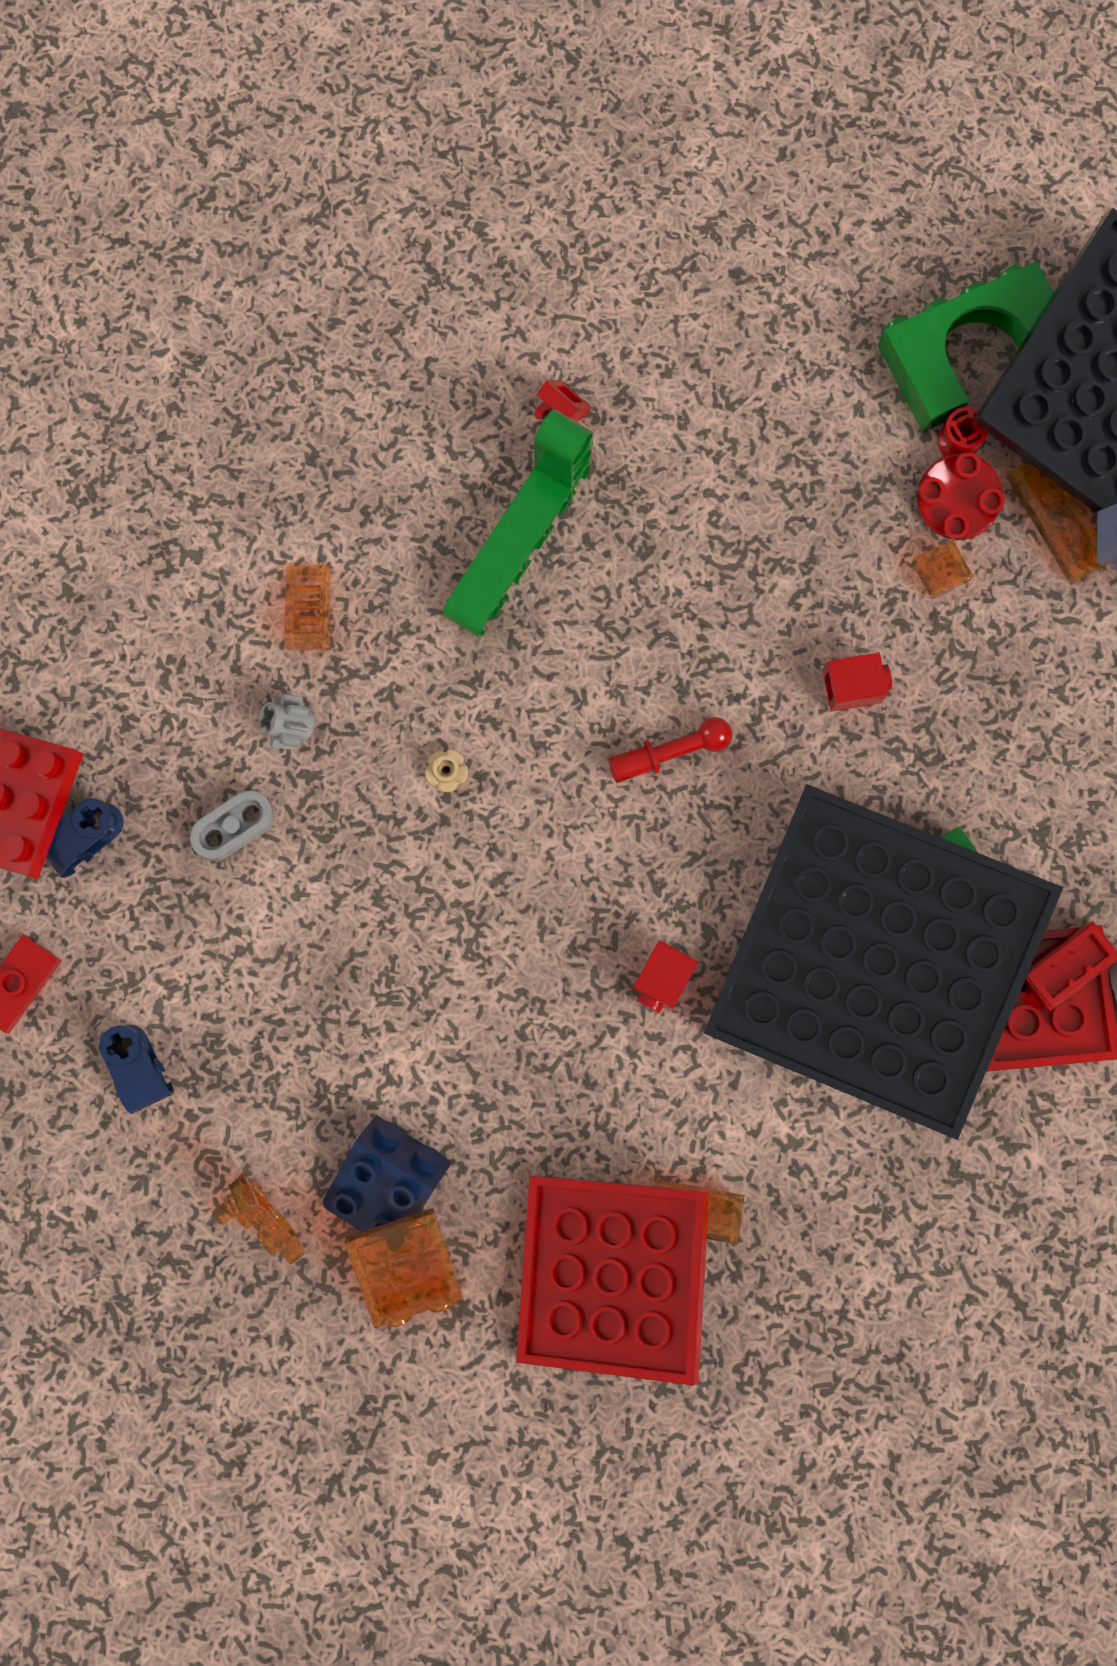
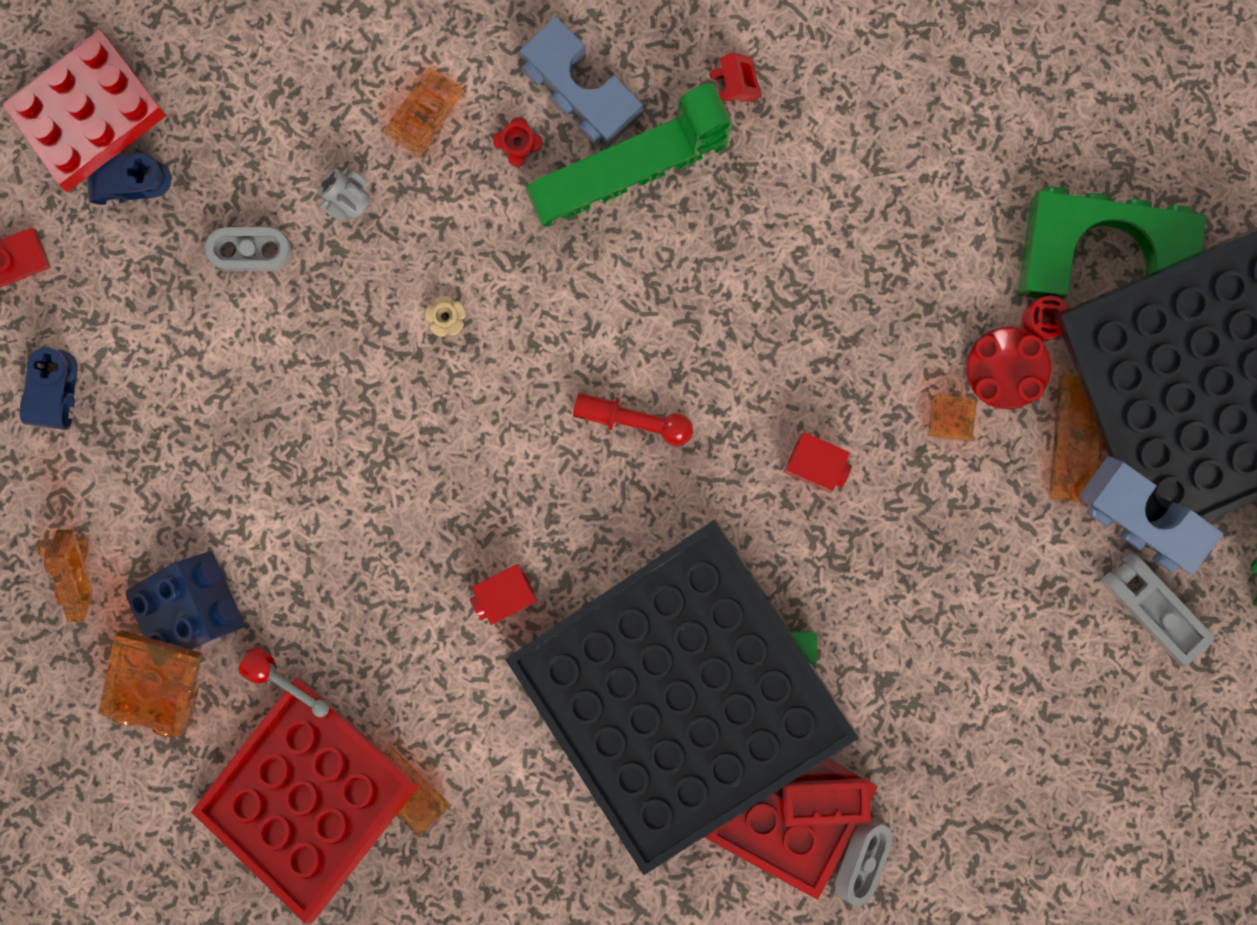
camera: 35 degrees right, 5 degrees up
(404, 568) = (517, 153): none -> red plate
(463, 506) = (603, 110): none -> sand blue arch
(491, 1188) = (260, 666): none -> hinge

